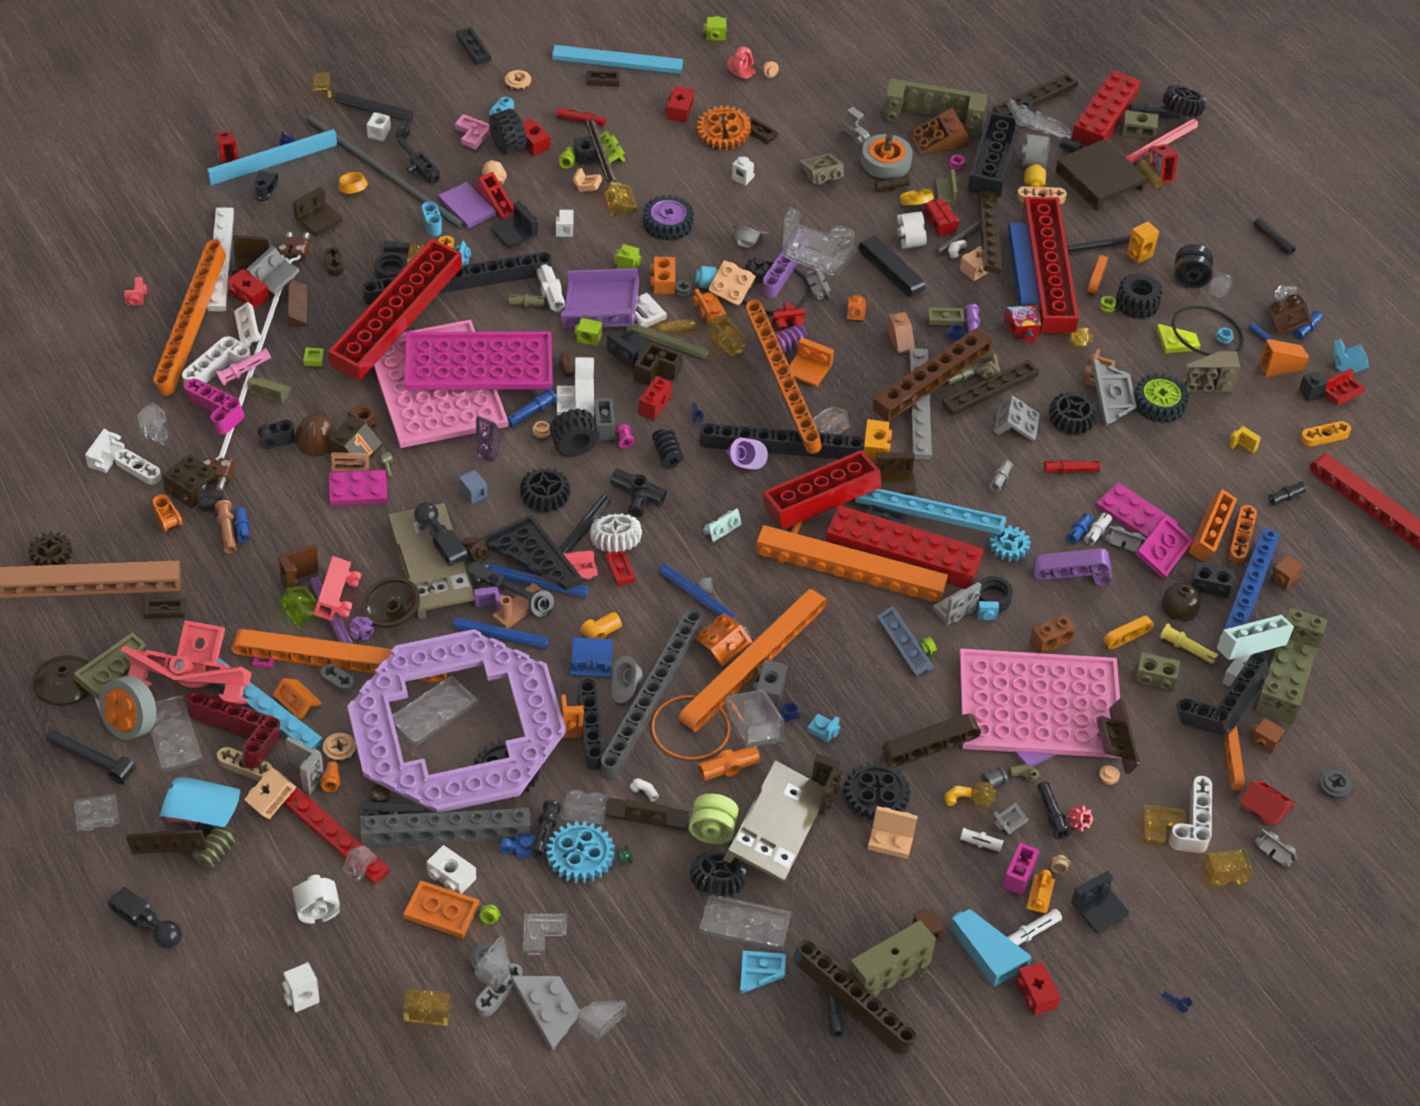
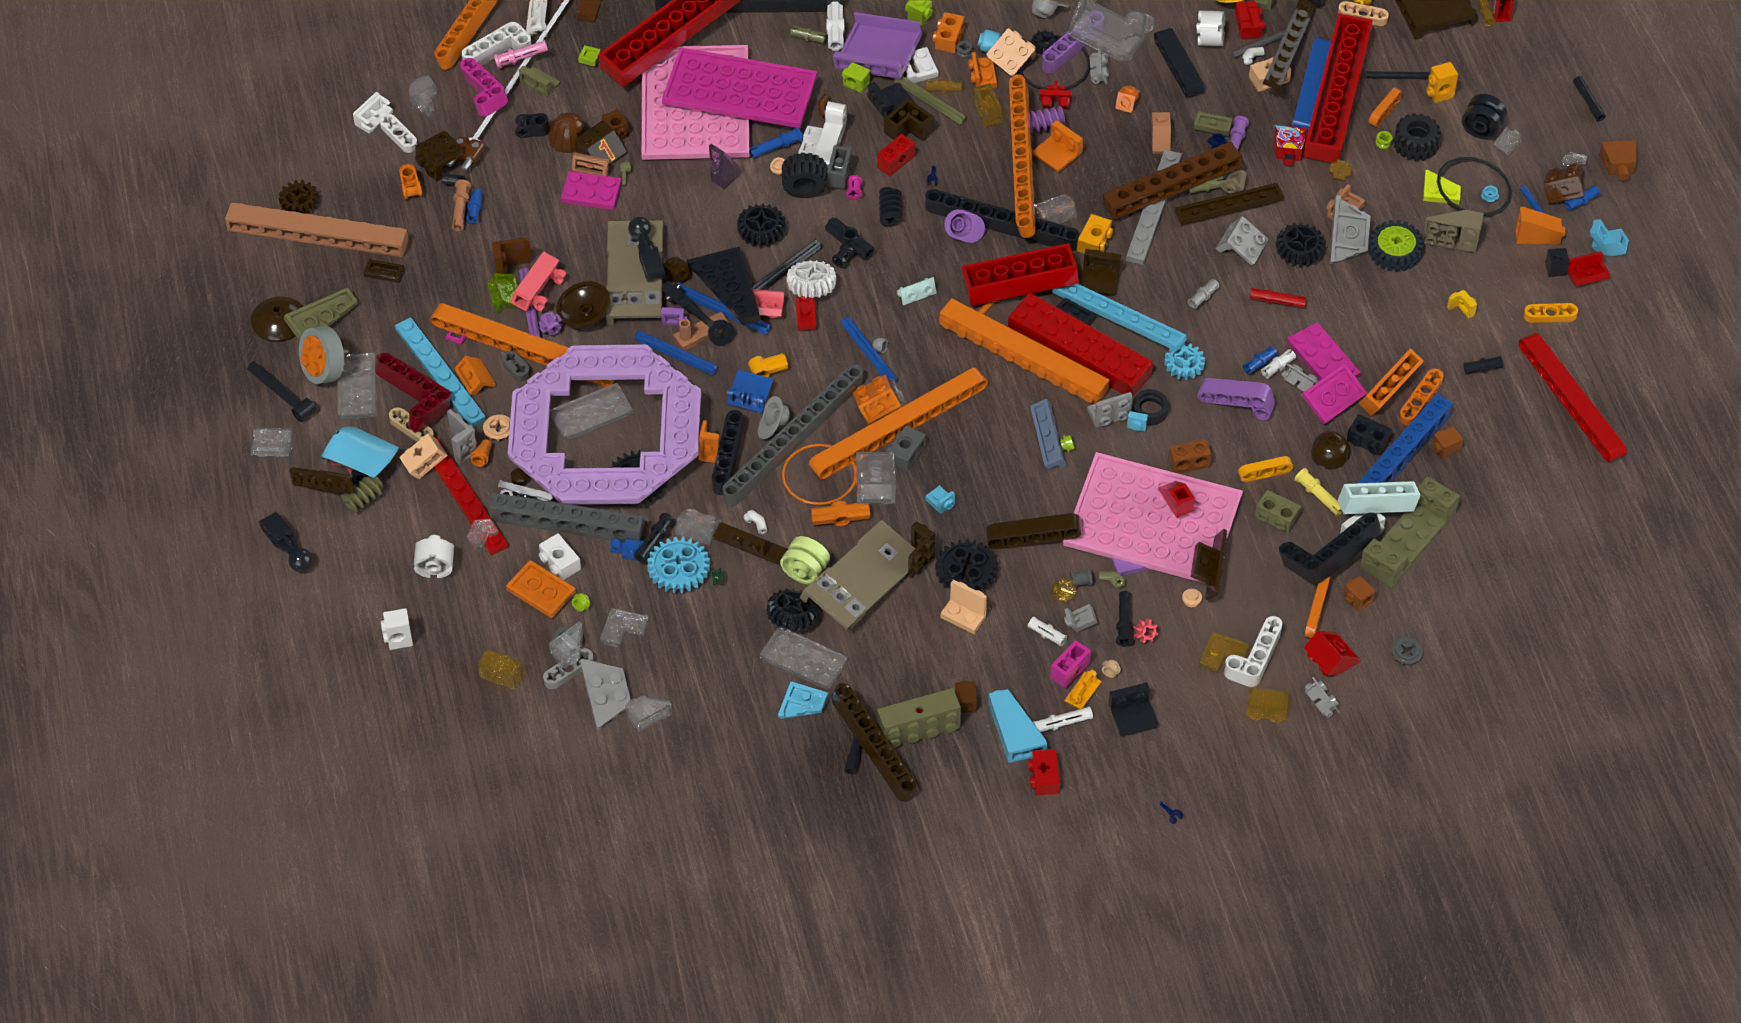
camera: 20 degrees right, 5 degrees up
(193, 666) = (390, 328): coral piece -> none
(473, 486) = (695, 209): sand blue panel -> none
(789, 707) = (914, 474): clear blue plate -> none
(957, 791) = (1038, 584): yellow arm -> none
(1061, 676) = (1178, 497): none -> red slope
(1325, 283) = (1619, 158): none -> dark orange torso

